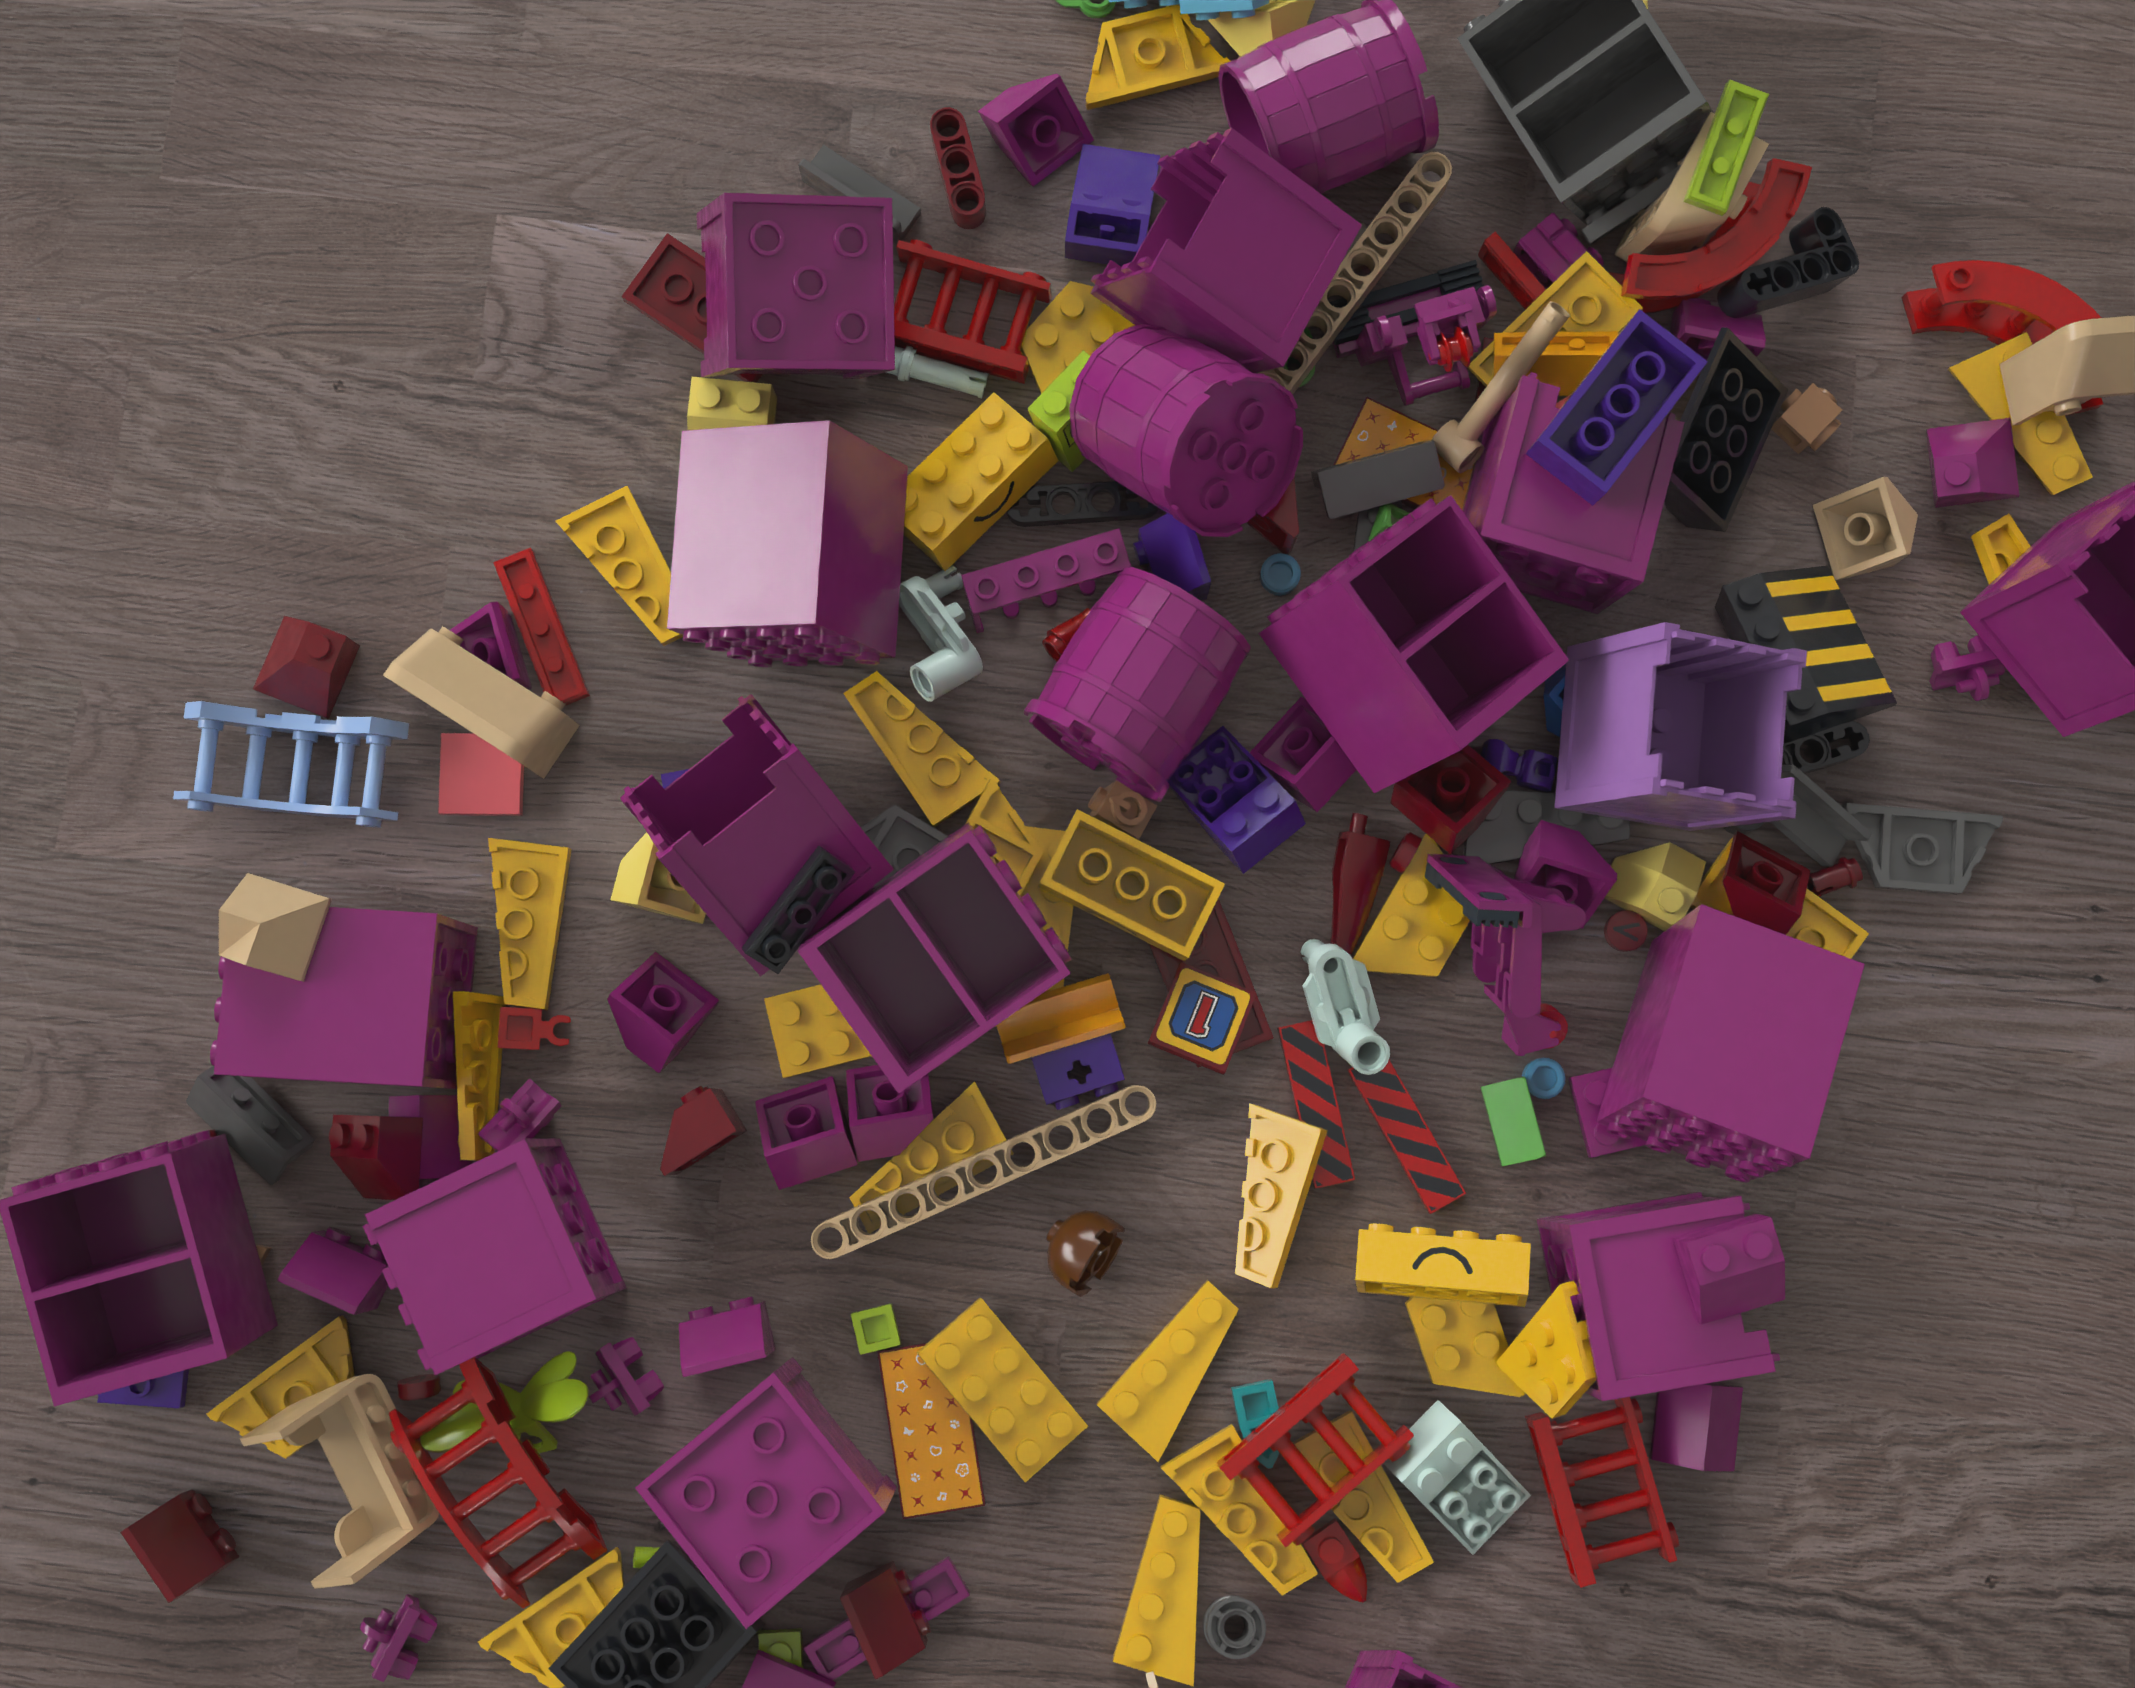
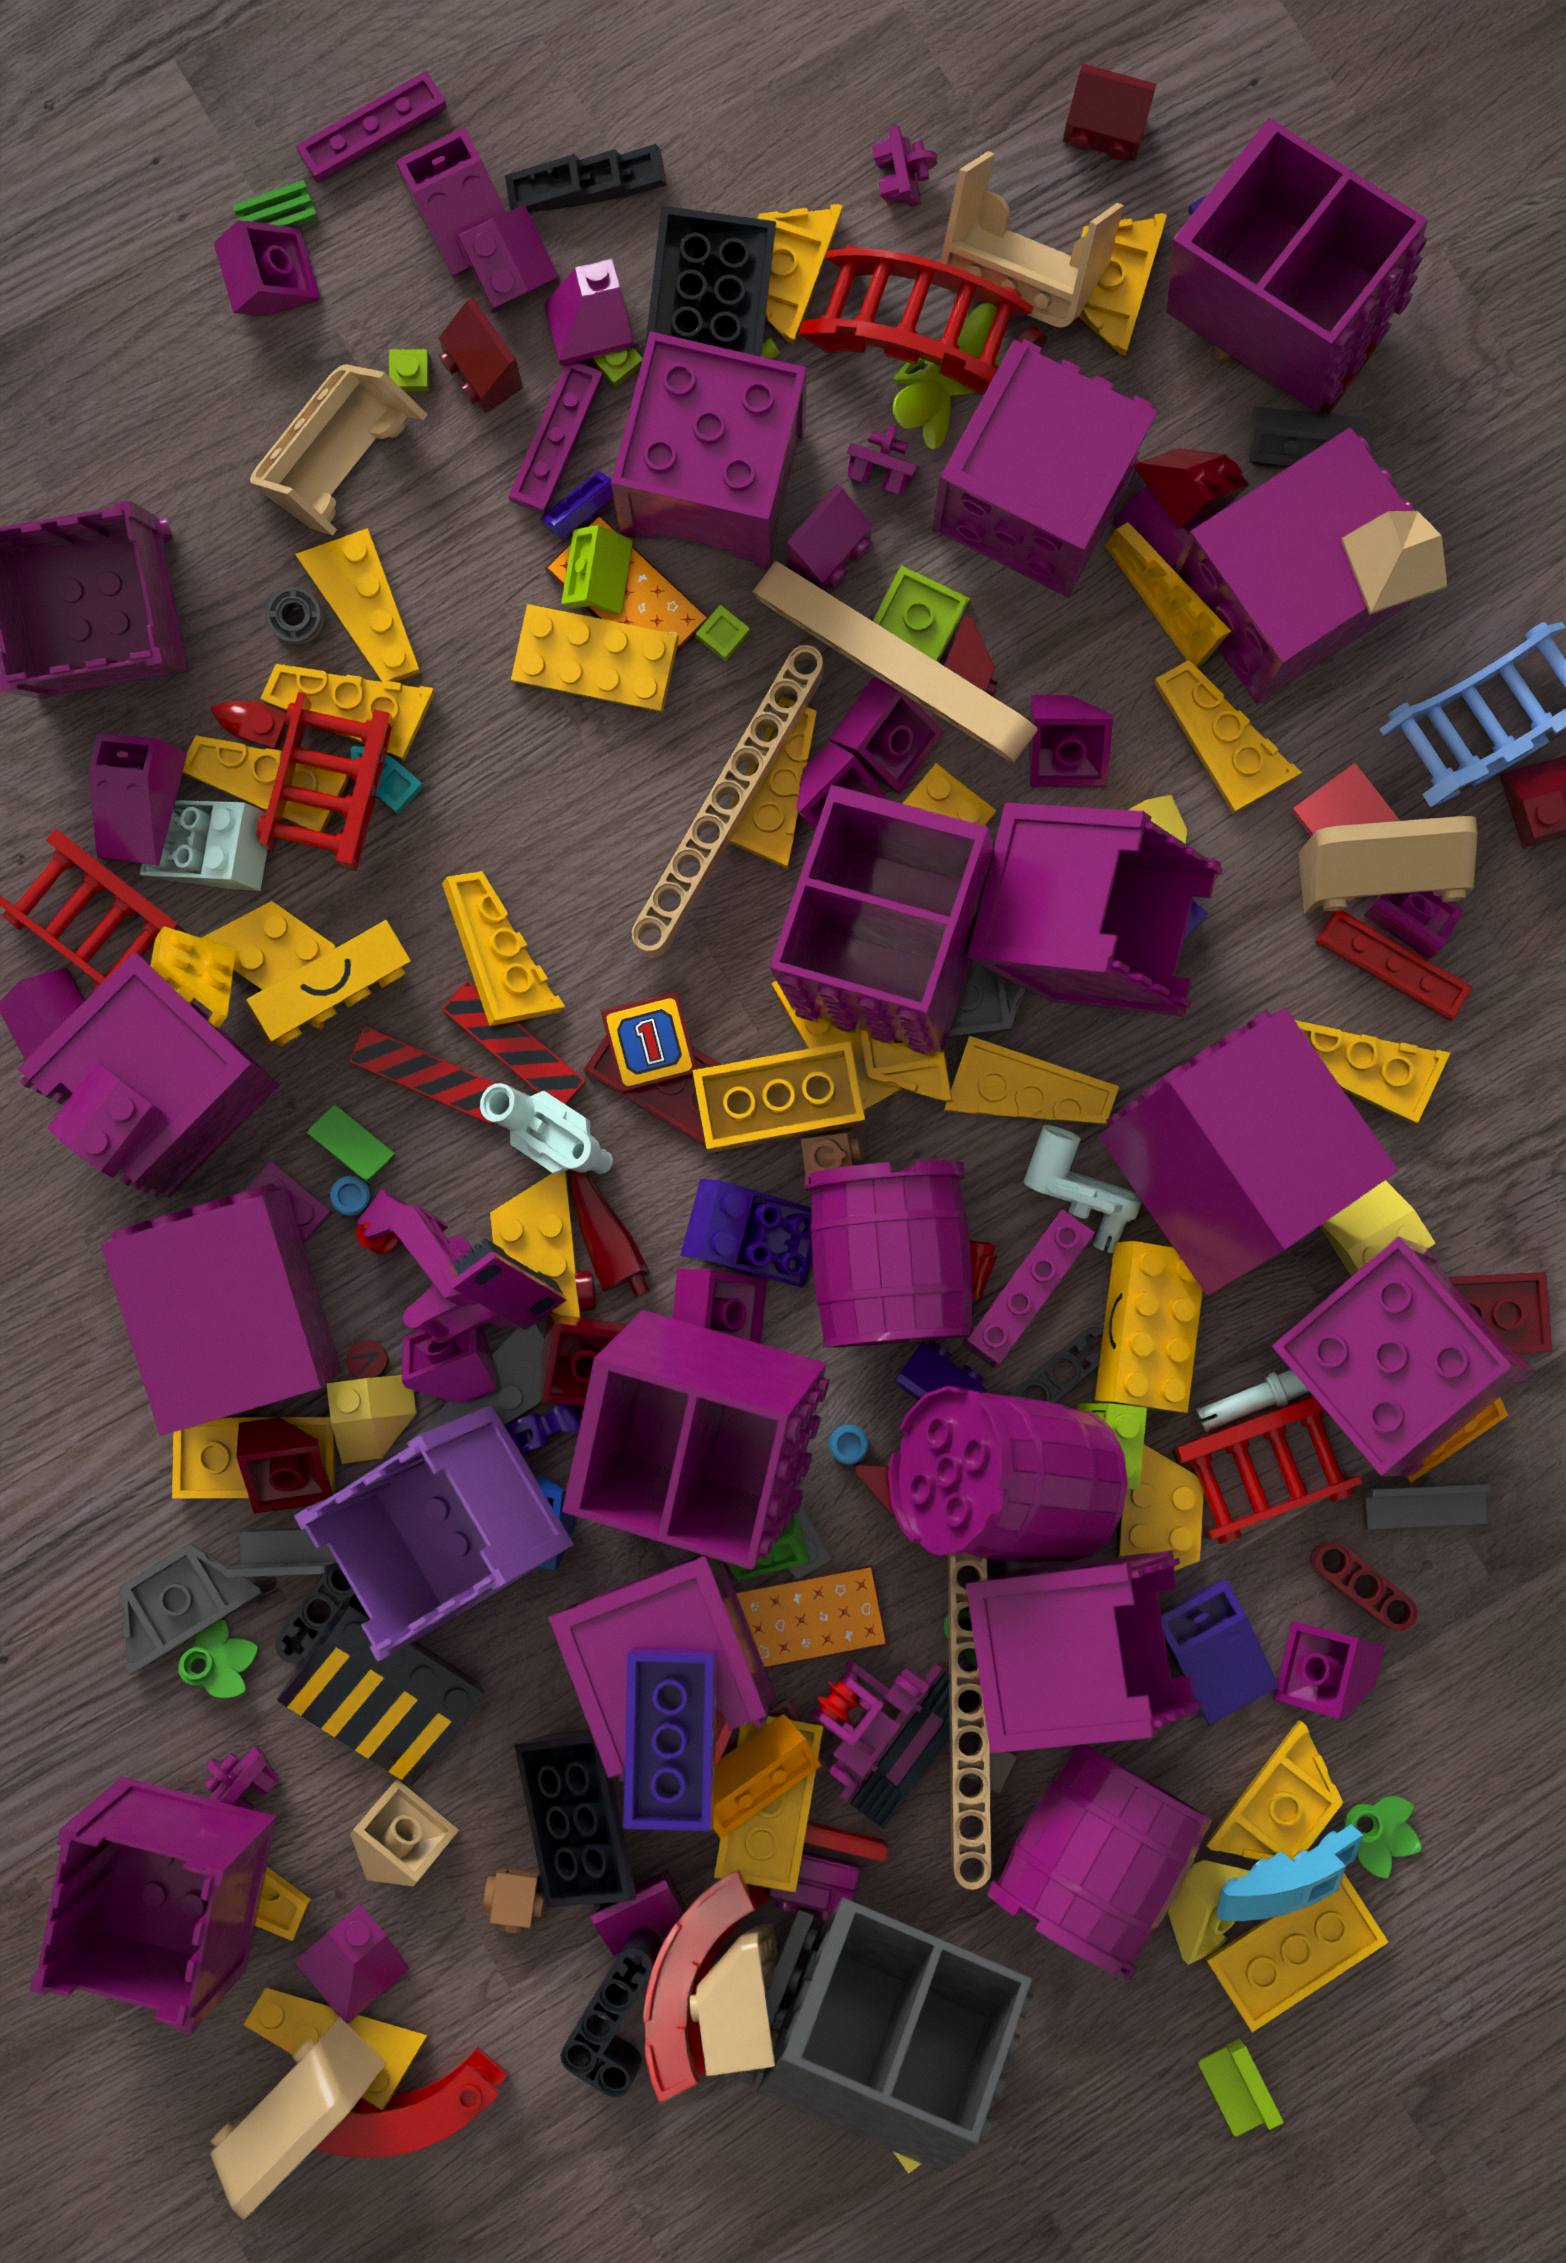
camera: 145 degrees right, 0 degrees up
(338, 1271) = (1156, 372): magenta slope -> none
(520, 1116) = (1107, 583): magenta hips -> none
(523, 1028) = (1158, 654): red plate -> none
(699, 1217) = (921, 612): none -> lime tile
(755, 1180) = (895, 662): none -> tan beam
(812, 889) = (1014, 867): black tile -> none
(885, 1618) = (558, 429): dark red slope -> none
(912, 1539) = (579, 505): none -> dark purple plate
(943, 1466) = (597, 569): none -> lime panel
(1054, 1065) = (712, 955): dark purple brick -> none
(1061, 1019) = (744, 976): light orange panel -> none
(1082, 1249) = (611, 802): reddish brown cylinder -> none
(1165, 1376) = (479, 759): yellow wing -> none
(1379, 479) = (826, 1576): dark grey panel -> none
(1458, 441) = (784, 1657): tan piece -> none
(1492, 1565) = (133, 796): none -> magenta slope
(1726, 147) = (739, 2043): lime tile -> none
(1843, 874) = (230, 1525): dark red pin -> none
(1914, 771) = (224, 1661): none -> bright green plate

